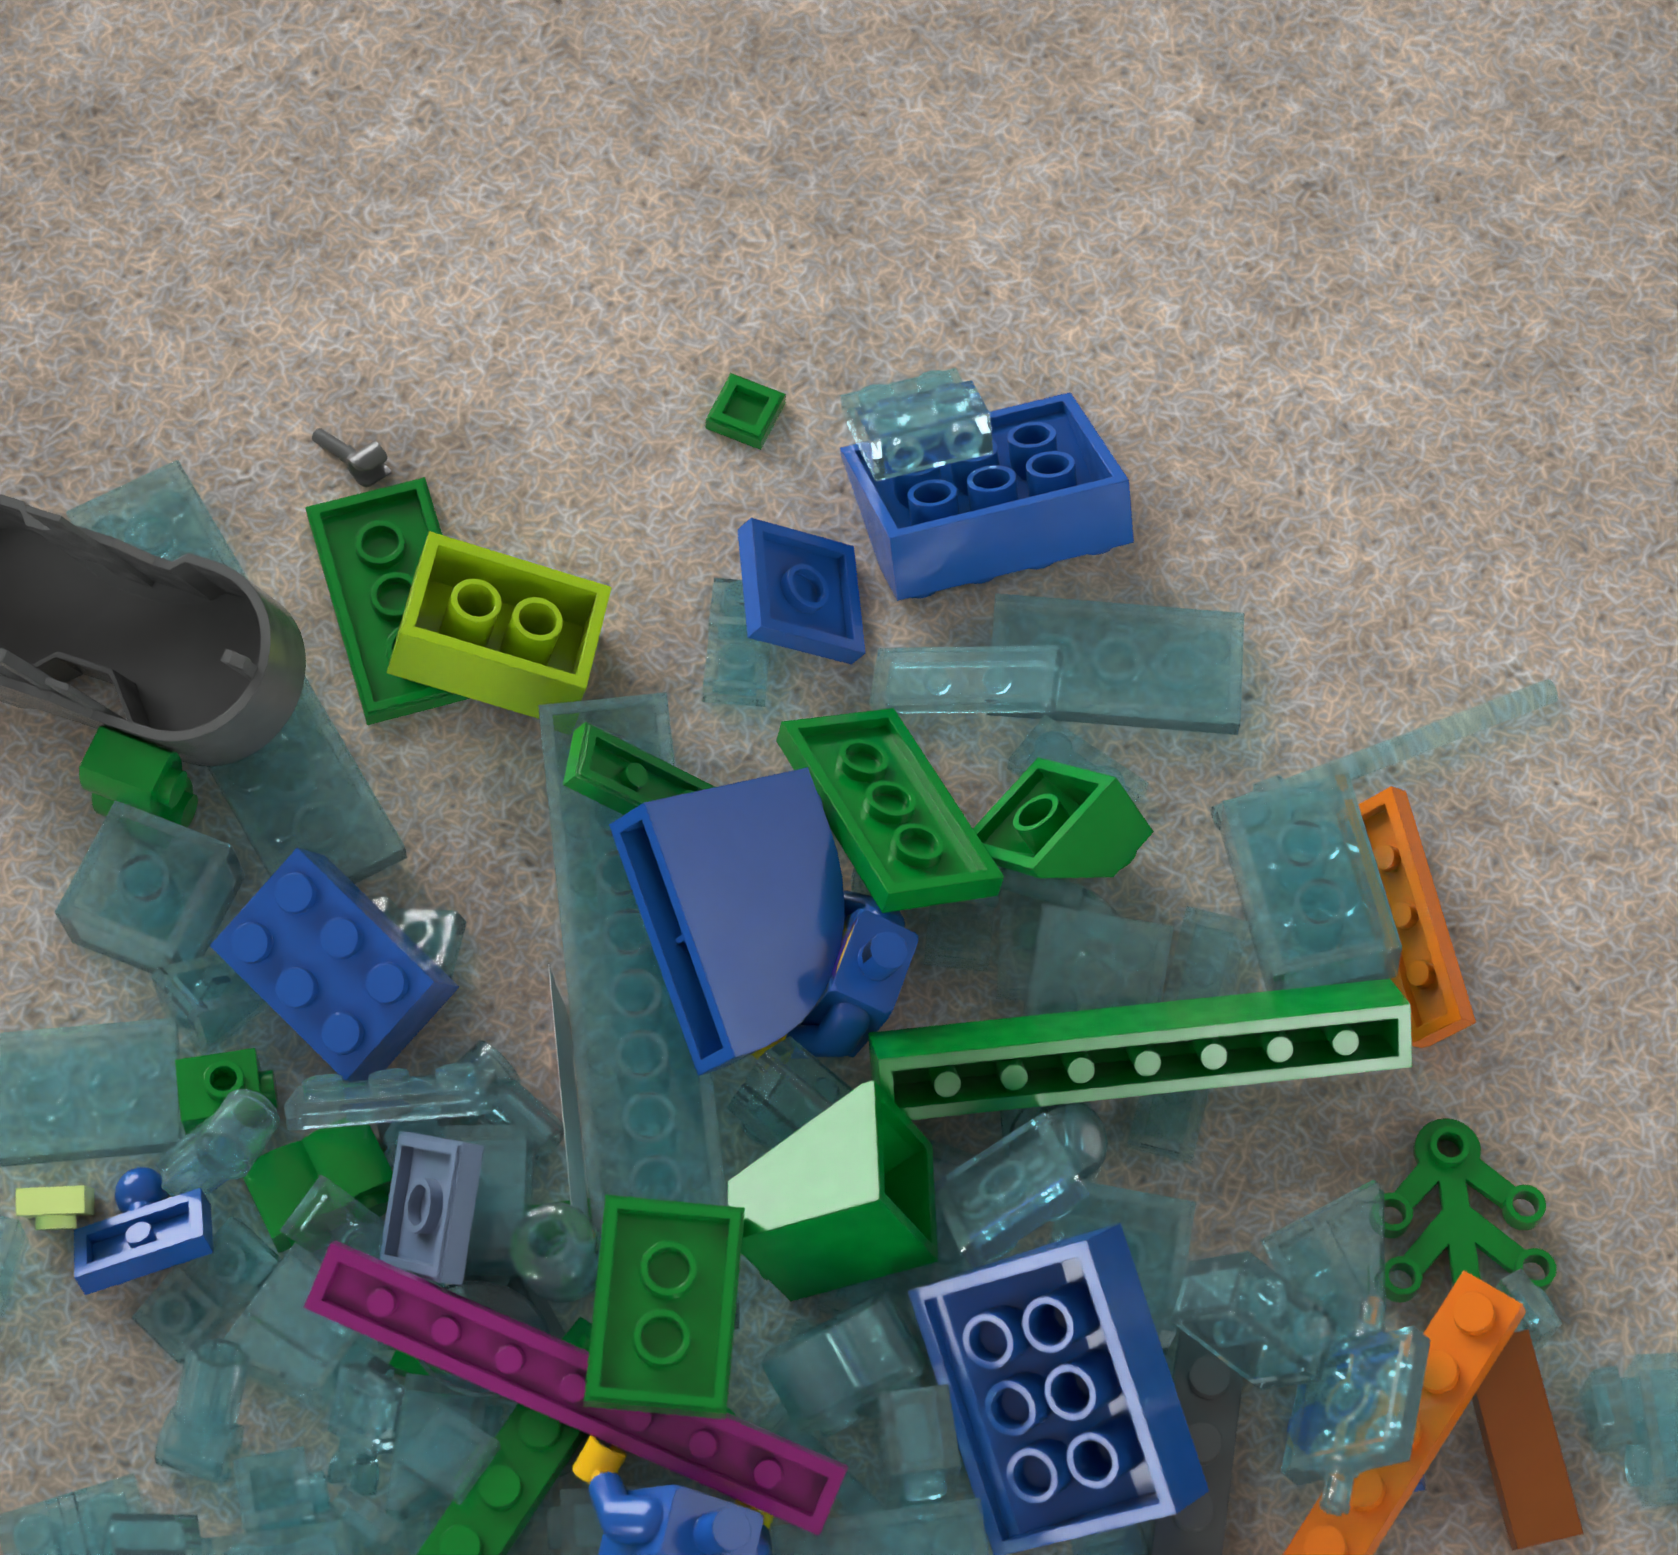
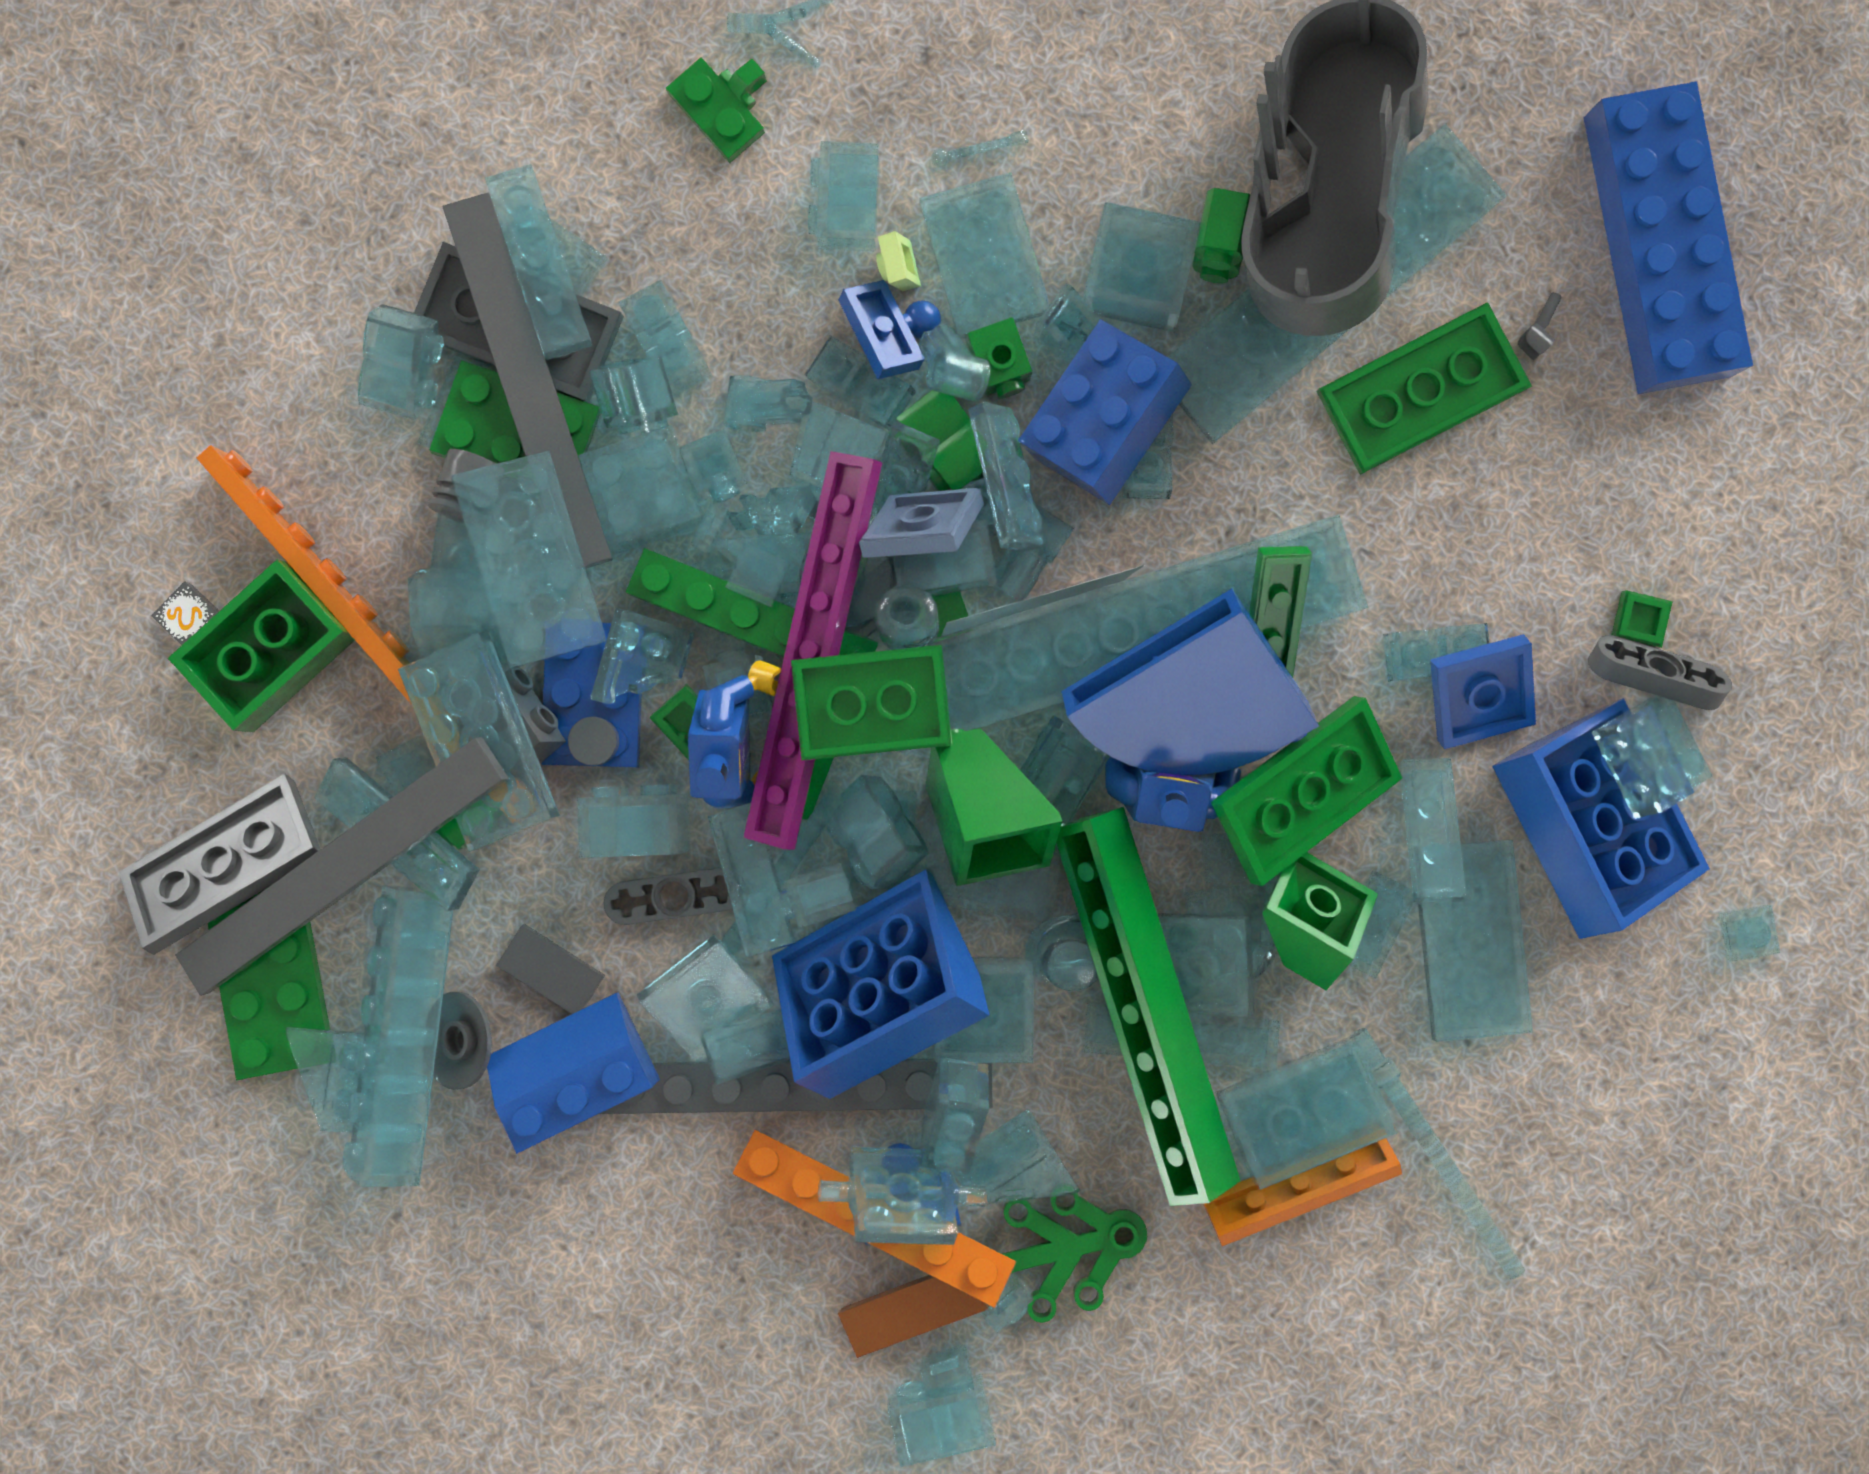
camera: 80 degrees right, 25 degrees up
(280, 298) = (1667, 238): none -> blue brick
(498, 627) = (1401, 471): lime brick -> none
(815, 400) = (1683, 677): none -> dark grey beam
(1009, 1191) = (1012, 929): clear light blue plate -> none
(1156, 364) = (1749, 932): none -> clear light blue plate

